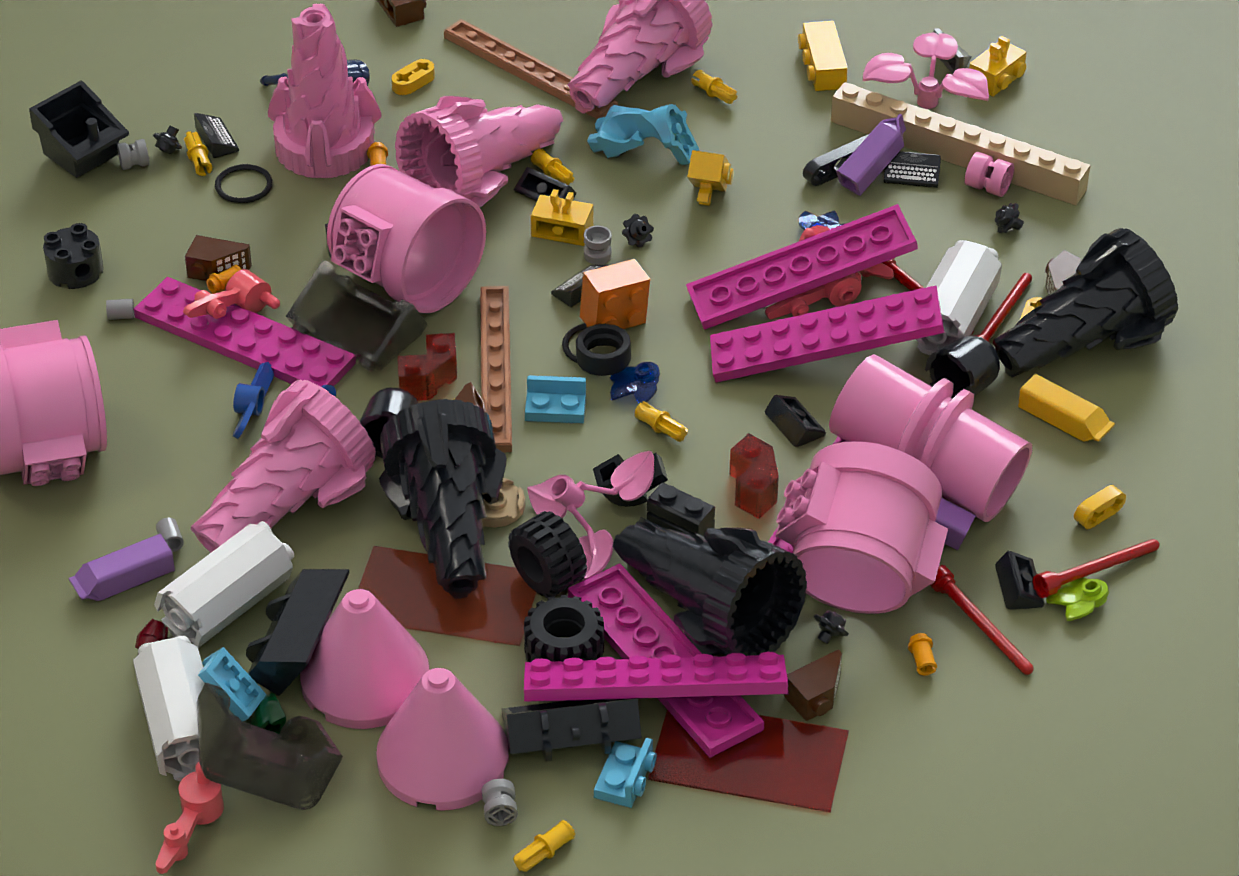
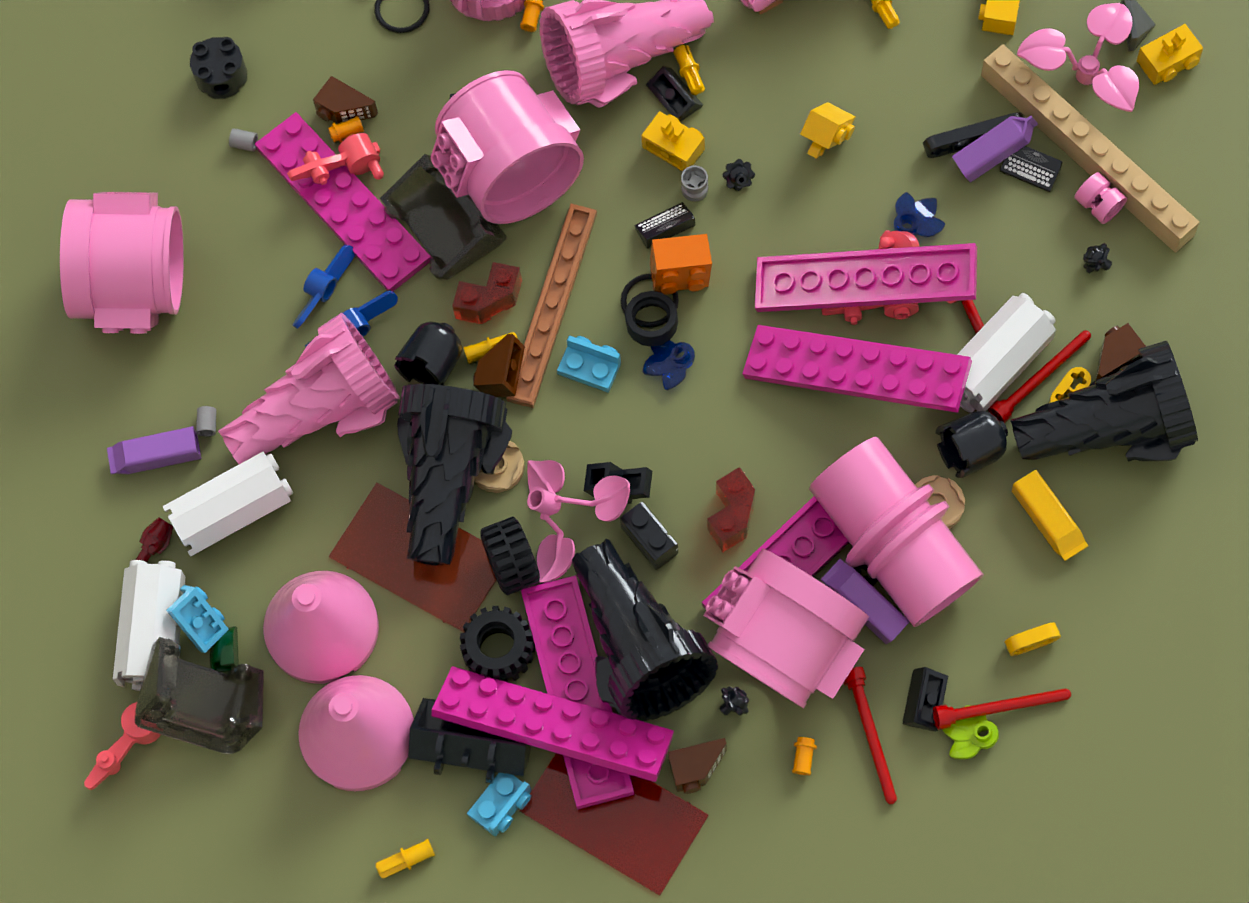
camera: 25 degrees right, 25 degrees up
(295, 627) = (270, 573): black piece -> none
(499, 802) = (383, 803): light grey wheel -> none
(628, 127) = (768, 50): medium azure hips -> none
(660, 421) = (674, 417): yellow axle -> none
(794, 420) = (798, 448): black slope -> none

